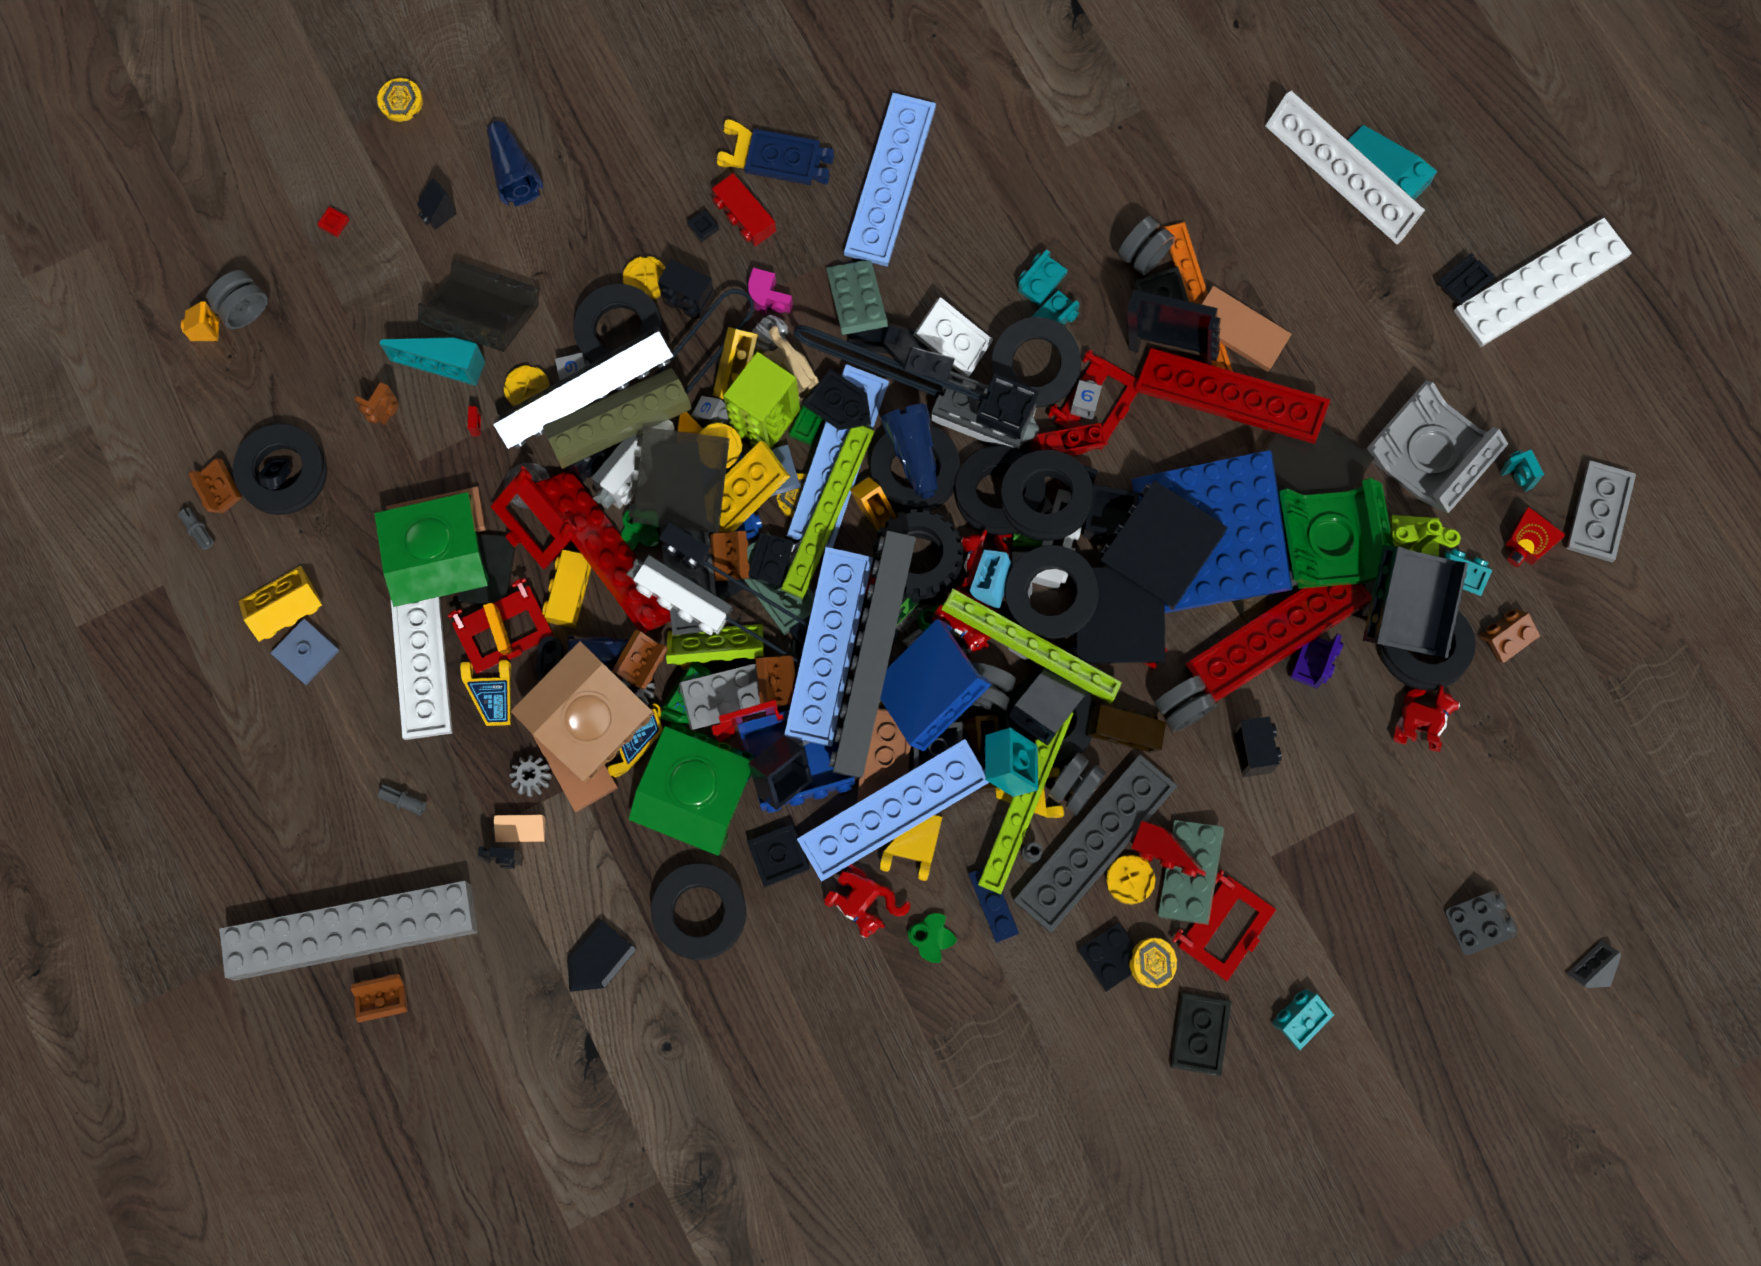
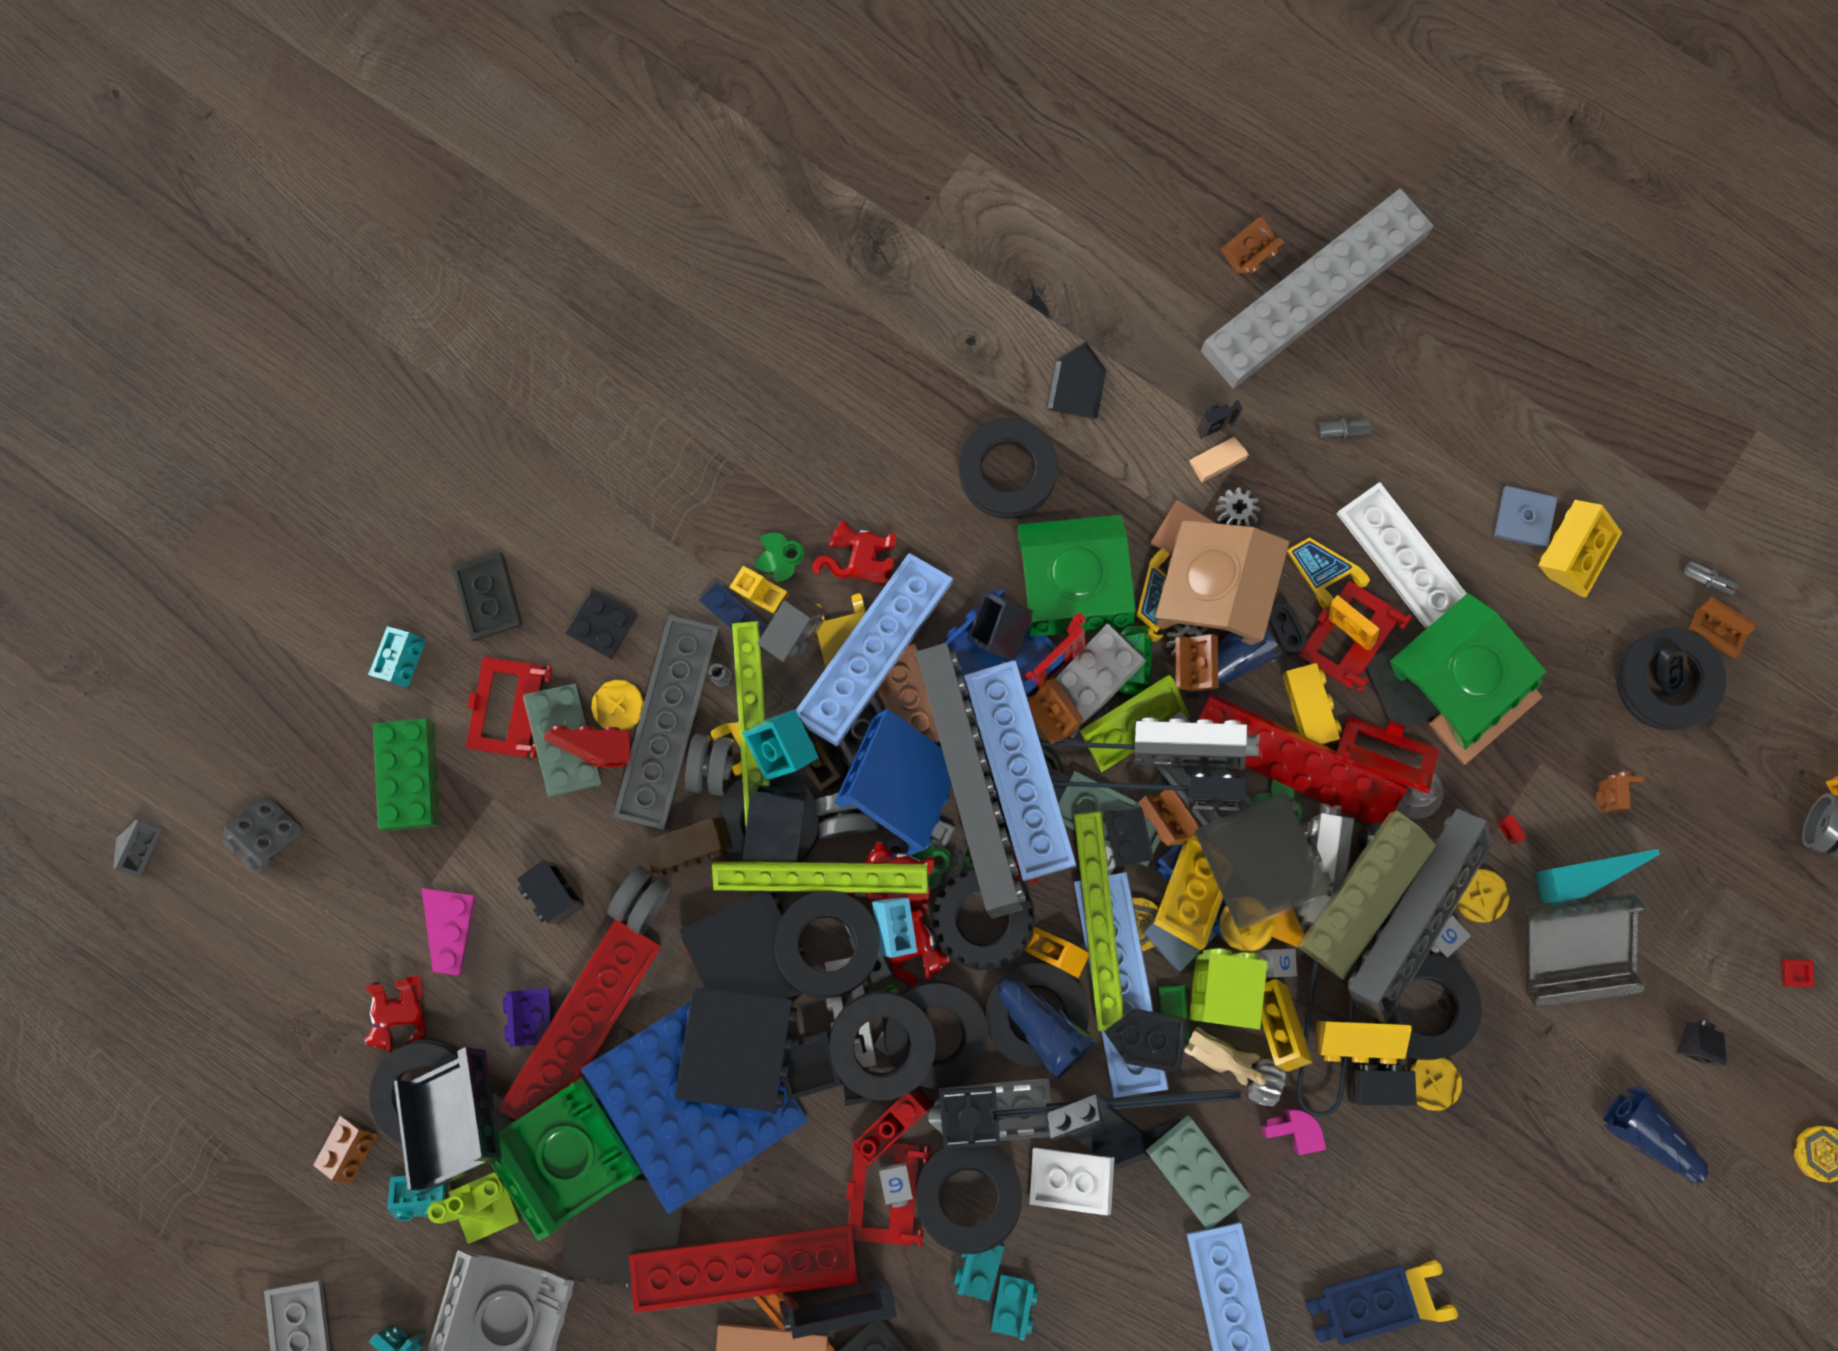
camera: 155 degrees right, 5 degrees up
(682, 322) = (1362, 1041): none -> yellow slope
(703, 226) = (1408, 1175): black plate -> none
(743, 210) = (1376, 1216): red brick -> none
(778, 856) = (962, 556): black plate -> none
(952, 860) = (792, 627): none -> dark grey brick
(963, 916) = (759, 590): none -> yellow slope
(1153, 963) = (559, 635): yellow tile -> none
(1336, 908) = (406, 775): none -> green brick
(1354, 767) = (448, 928): none -> dark pink wing
(1531, 538) = (361, 1270): red torso -> none

